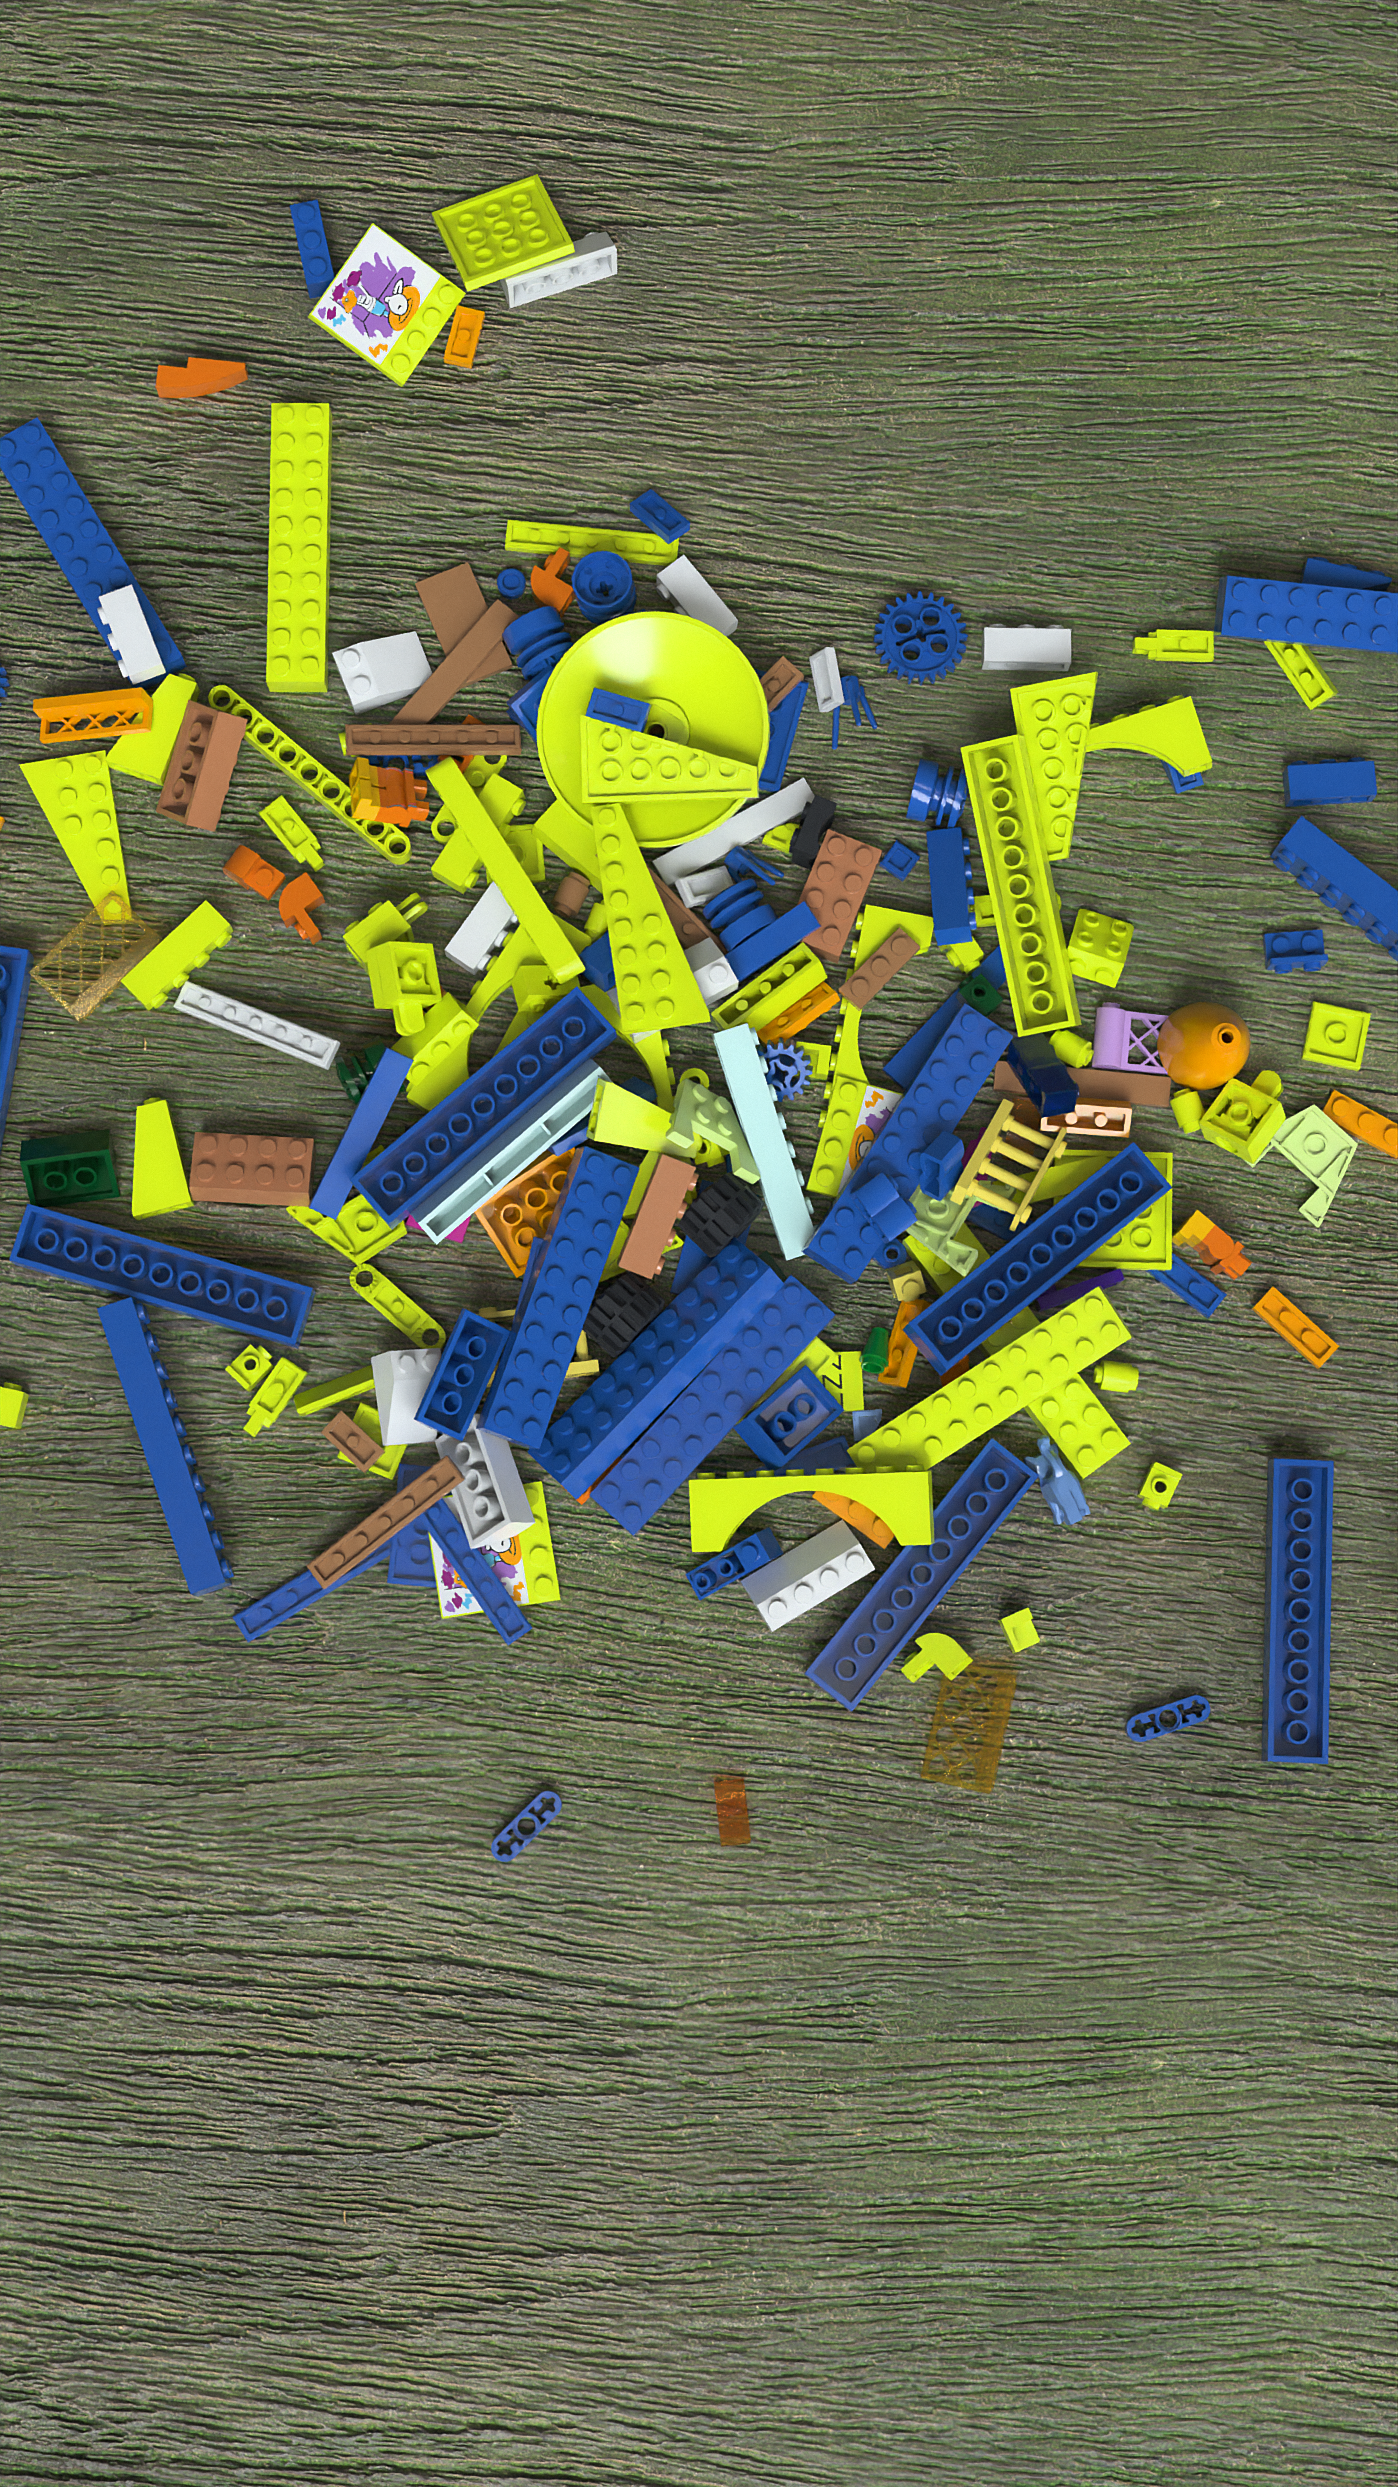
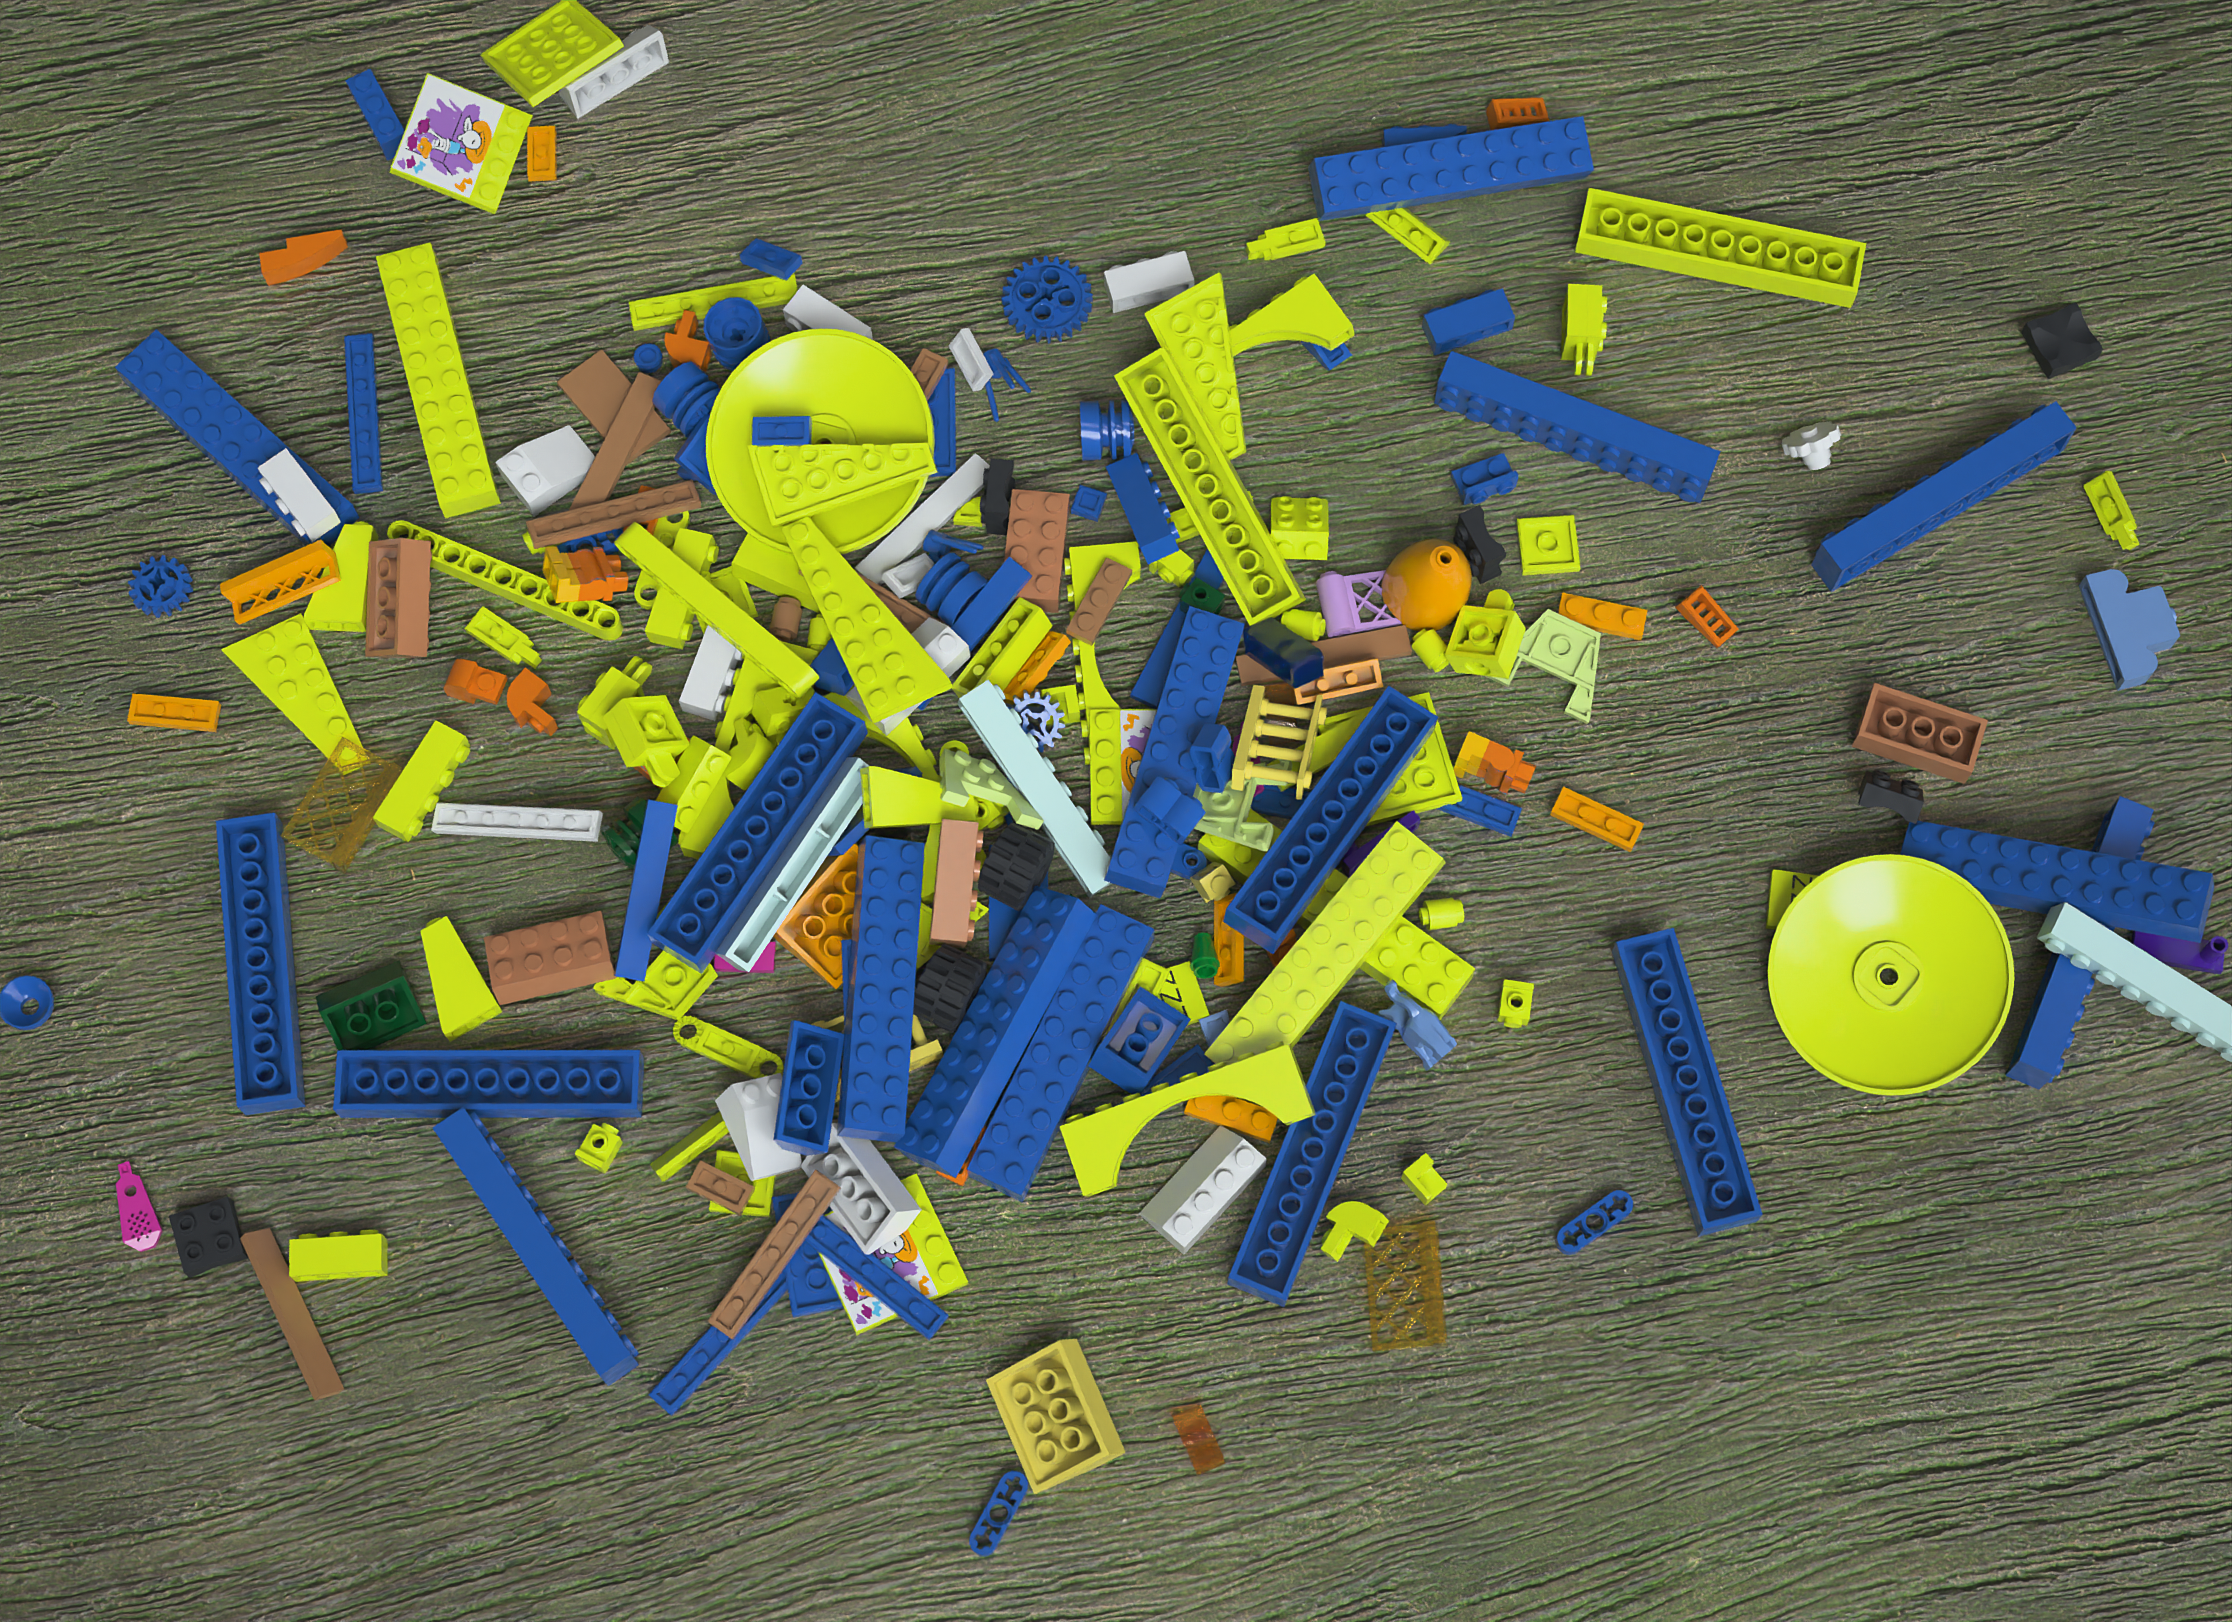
camera: 10 degrees left, 10 degrees down
(218, 559) = (363, 413): none -> blue tile
(274, 1395) = (630, 1168): neon yellow hinge -> none
(498, 1026) = (748, 755): none -> neon yellow brick
(605, 1751) = (1055, 1415): none -> light yellow slope
(734, 1563) = (1128, 1196): blue slope -> none
(1267, 1027) = (1478, 546): none -> black brick

